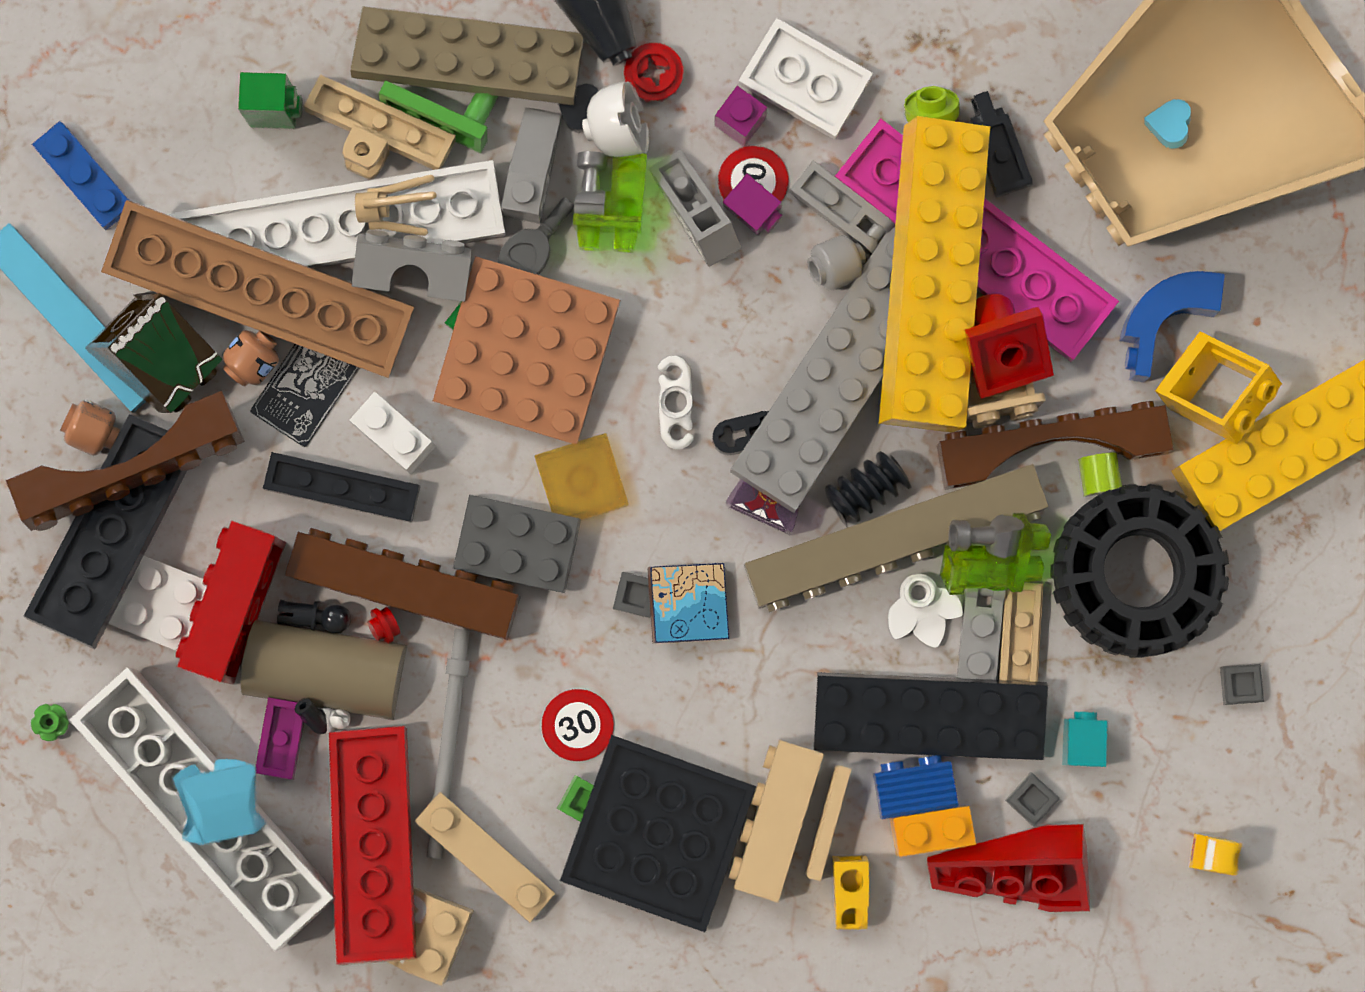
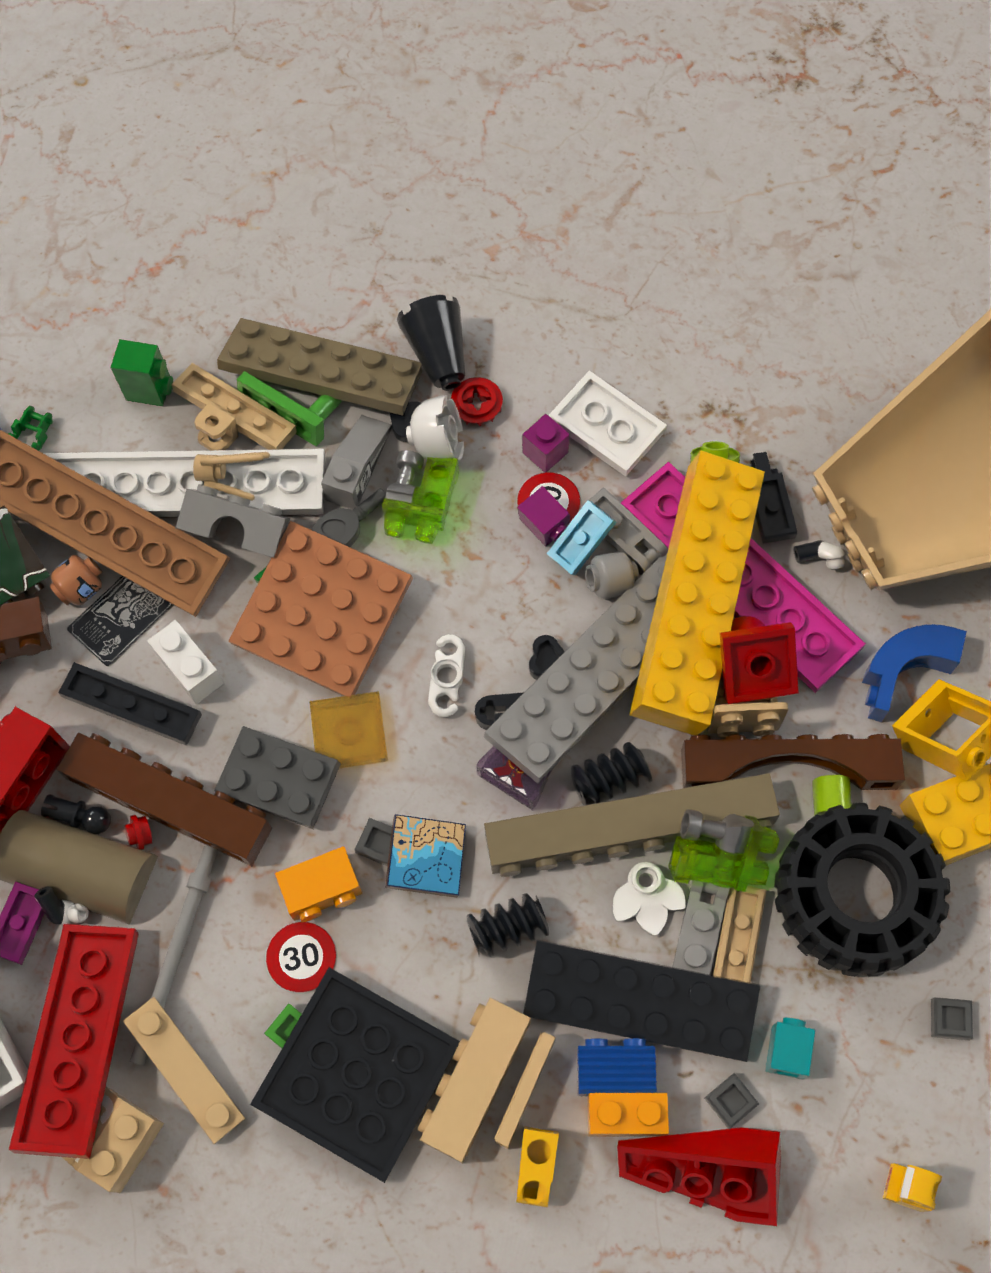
camera: 10 degrees right, 15 degrees down
(142, 177) = (21, 425): none -> green piece
(584, 650) = (319, 885): none -> light orange brick
(695, 208) = (494, 514): light grey slope -> none
(779, 365) = (545, 653): none -> black tile
(784, 662) = (507, 924): none -> black piece
(797, 225) = (581, 537): none -> medium azure plate
(1061, 196) = (820, 549): none -> arm
(1170, 123) = (926, 500): medium azure tile -> none

